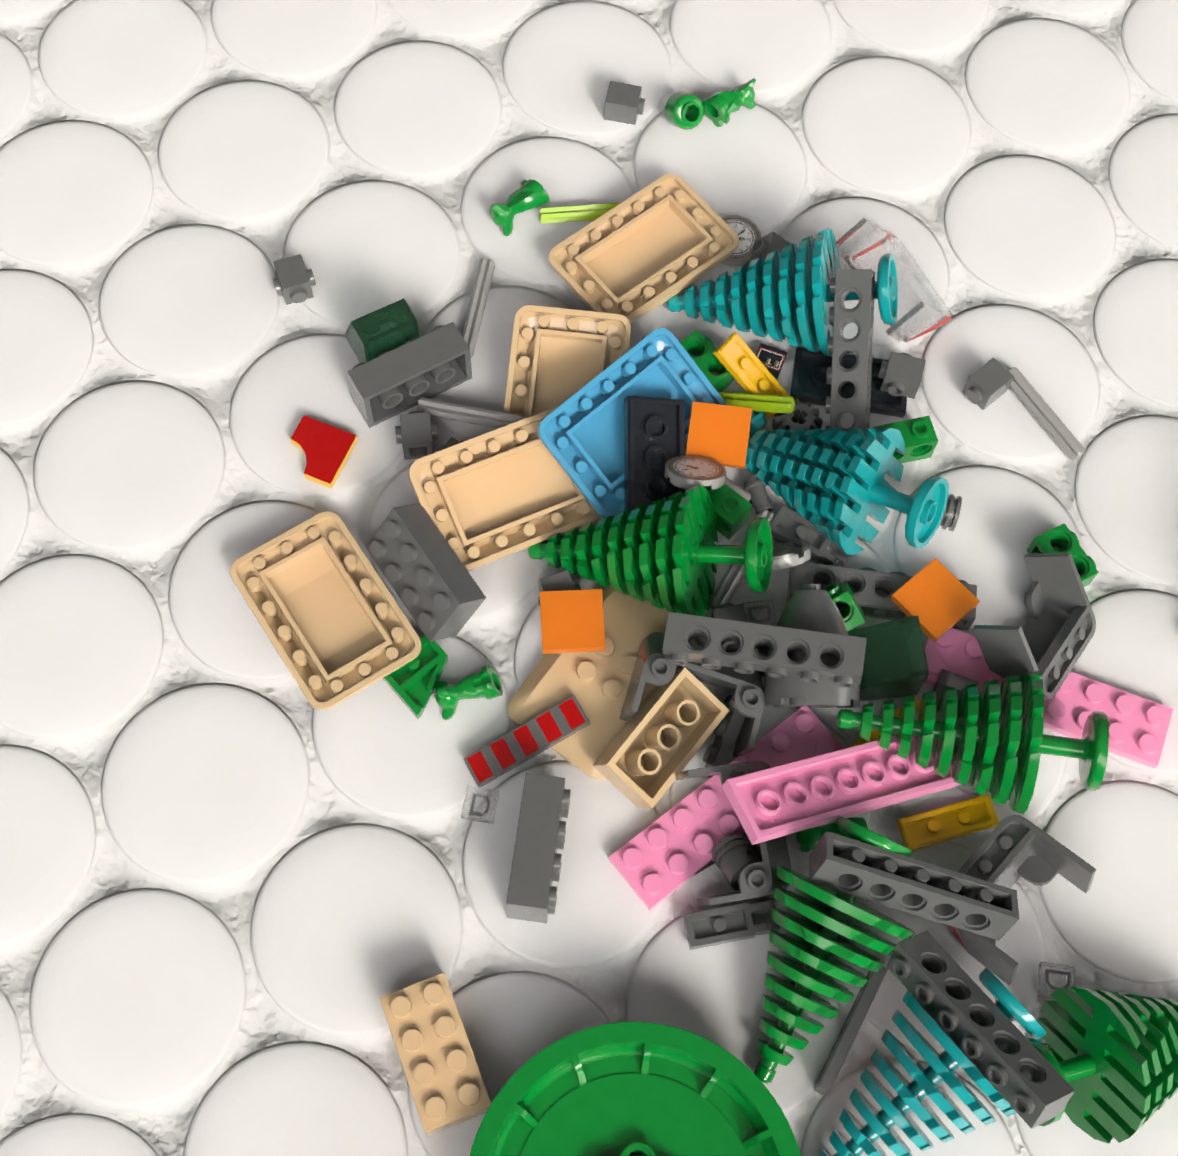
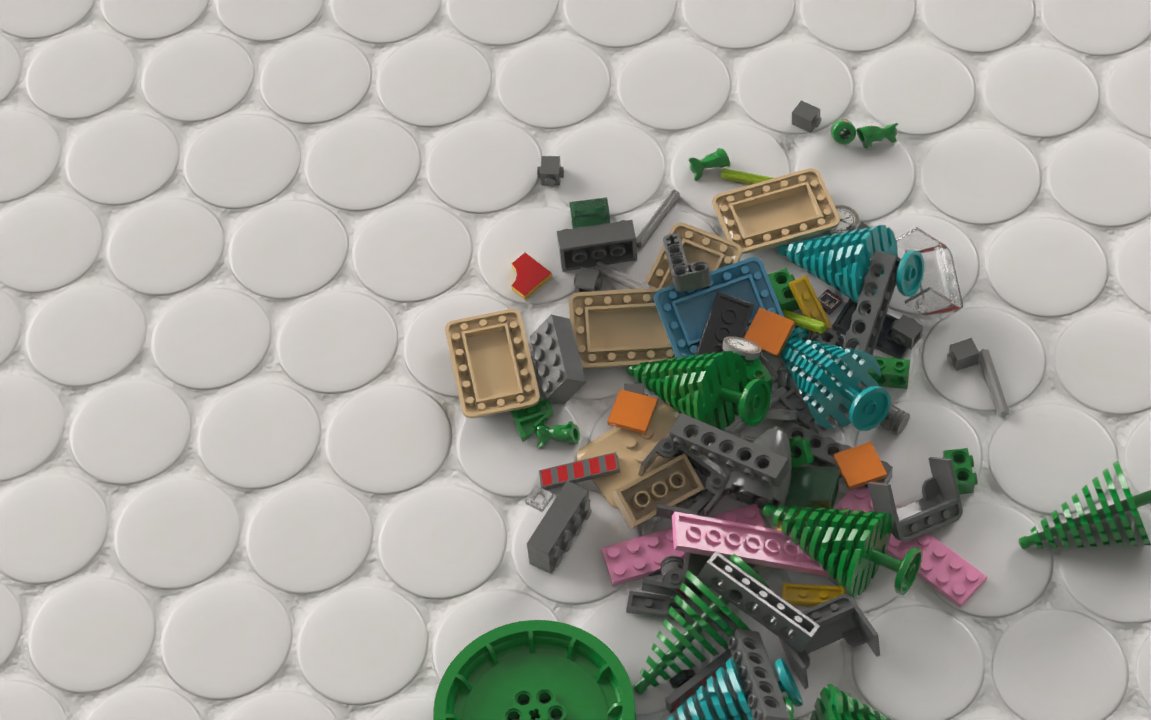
camera: 30 degrees right, 10 degrees down
(435, 1054) = (457, 612): tan brick -> none
(571, 387) = (684, 275): none -> dark grey beam
(826, 1035) = (682, 677): none -> black tile

